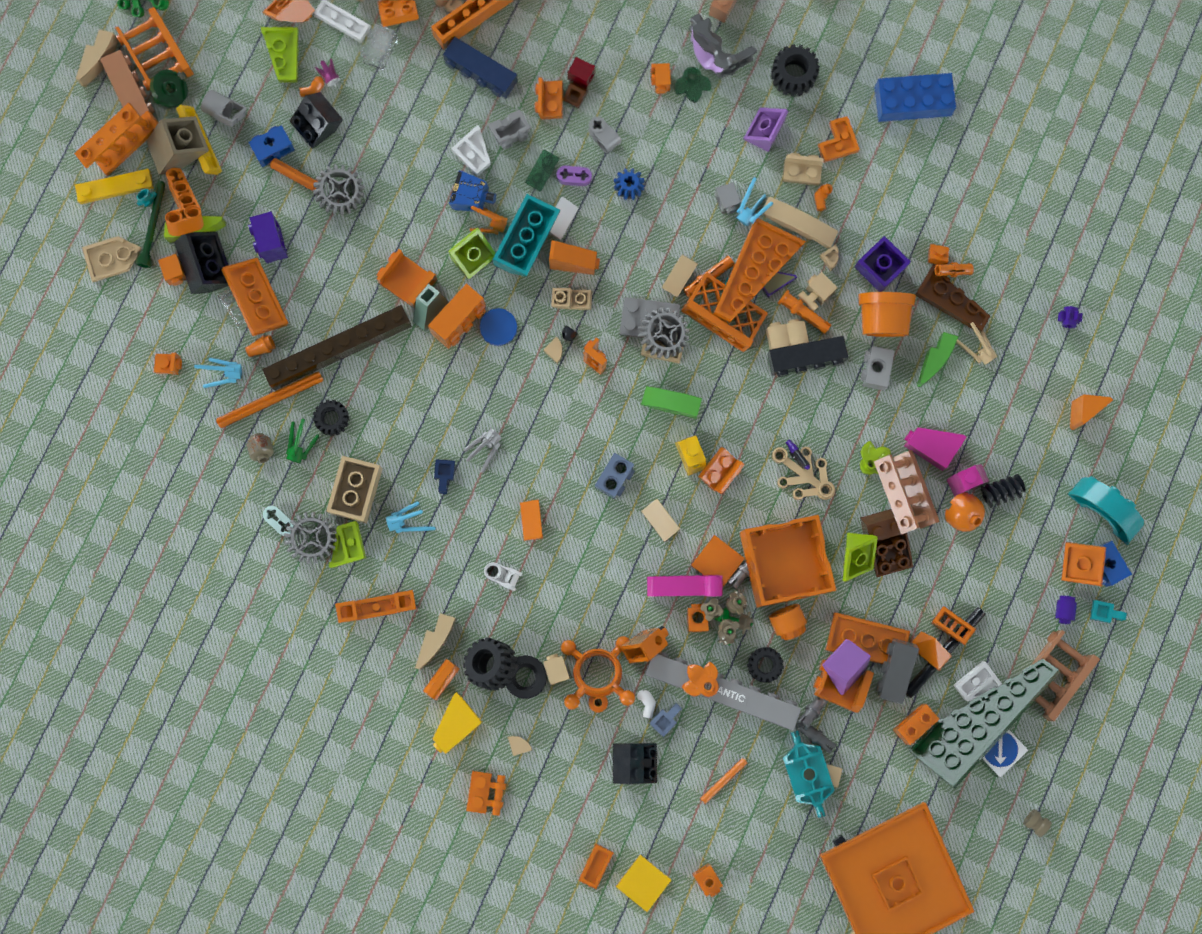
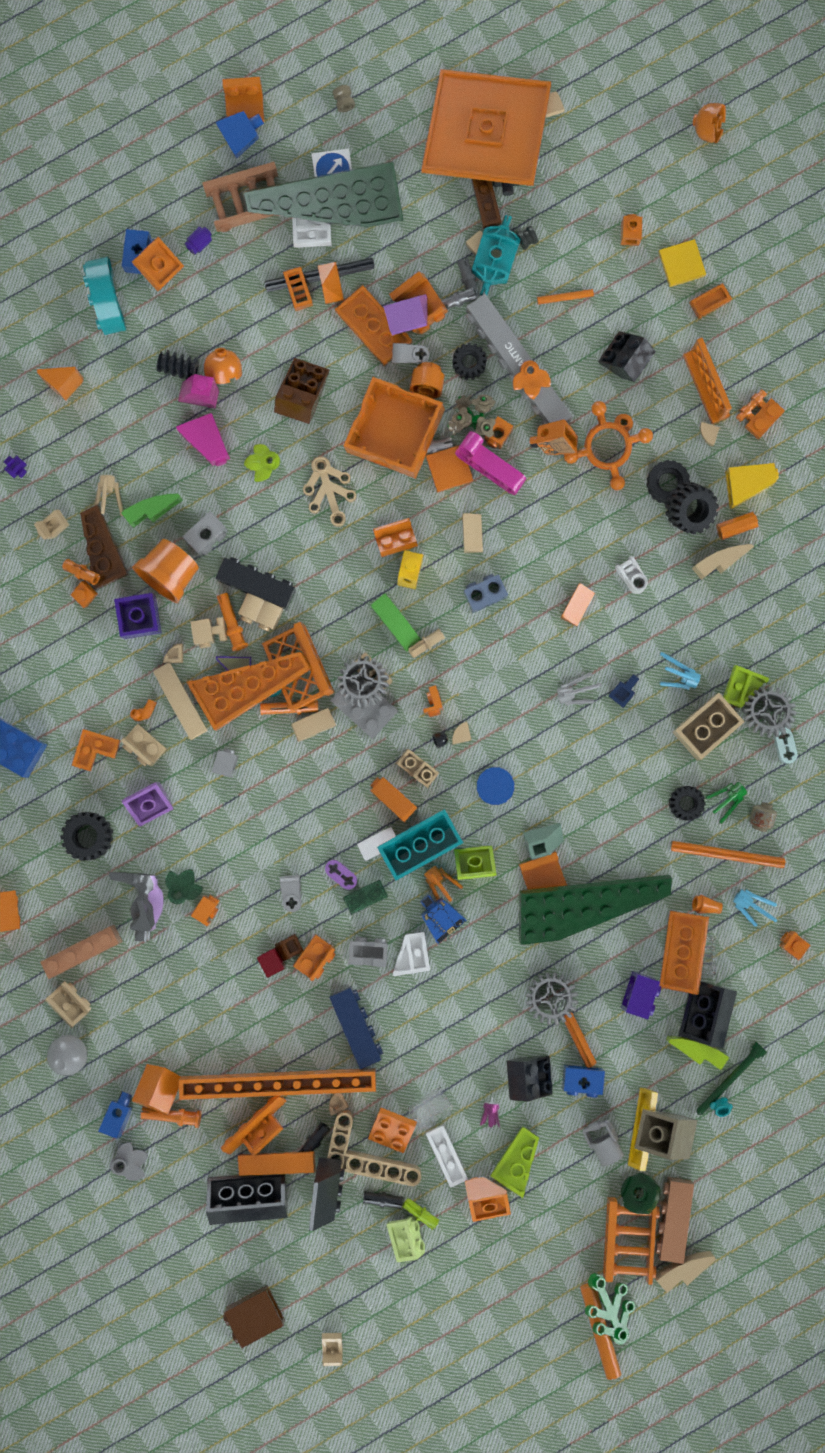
camera: 140 degrees left, 5 degrees up
(110, 257) = (785, 1074): tan tile -> none
(114, 186) = (741, 1137): yellow plate -> none
(117, 139) = (716, 1171): orange fence -> none
(172, 270) = (740, 1024): orange brick -> none
(188, 215) = (692, 1079): orange beam -> none
(315, 87) = (512, 1108): orange arm -> none
(336, 347) = (643, 859): dark brown brick -> none
(368, 269) = (567, 910): none -> dark green wing
(375, 607) = (751, 620): orange slope -> none
(457, 316) = (525, 814): orange brick -> none
(549, 786) = (707, 382): none -> orange fence
(556, 669) = (641, 468): tan brick -> none
(622, 181) = (306, 834): blue gear -> none
(634, 403) = (426, 643): none -> tan axle
(648, 701) = (582, 396): white arm -> none
(664, 721) = (580, 372): sand blue plate -> none
(748, 215) = (220, 737): medium azure plant -> none
(792, 809) = (527, 237): none -> pearl dark grey wheel
(797, 455) = (323, 508): piece -> none
(822, 633) = (406, 353): none -> light grey piece
(847, 814) = (486, 203): none -> reddish brown plate
(858, 555) = (334, 392): lime slope -> none
(897, 670) = (368, 283): dark grey brick -> none
(915, 487) = (248, 411): nougat fence -> none
(916, 724) = (383, 234): orange brick -> none
(1005, 290) = (51, 525): none -> tan bracket
(1102, 727) = (240, 131): none -> blue torso
(1104, 612) = (168, 217): teal plate -> none
(1118, 759) = (244, 95): none -> orange bracket

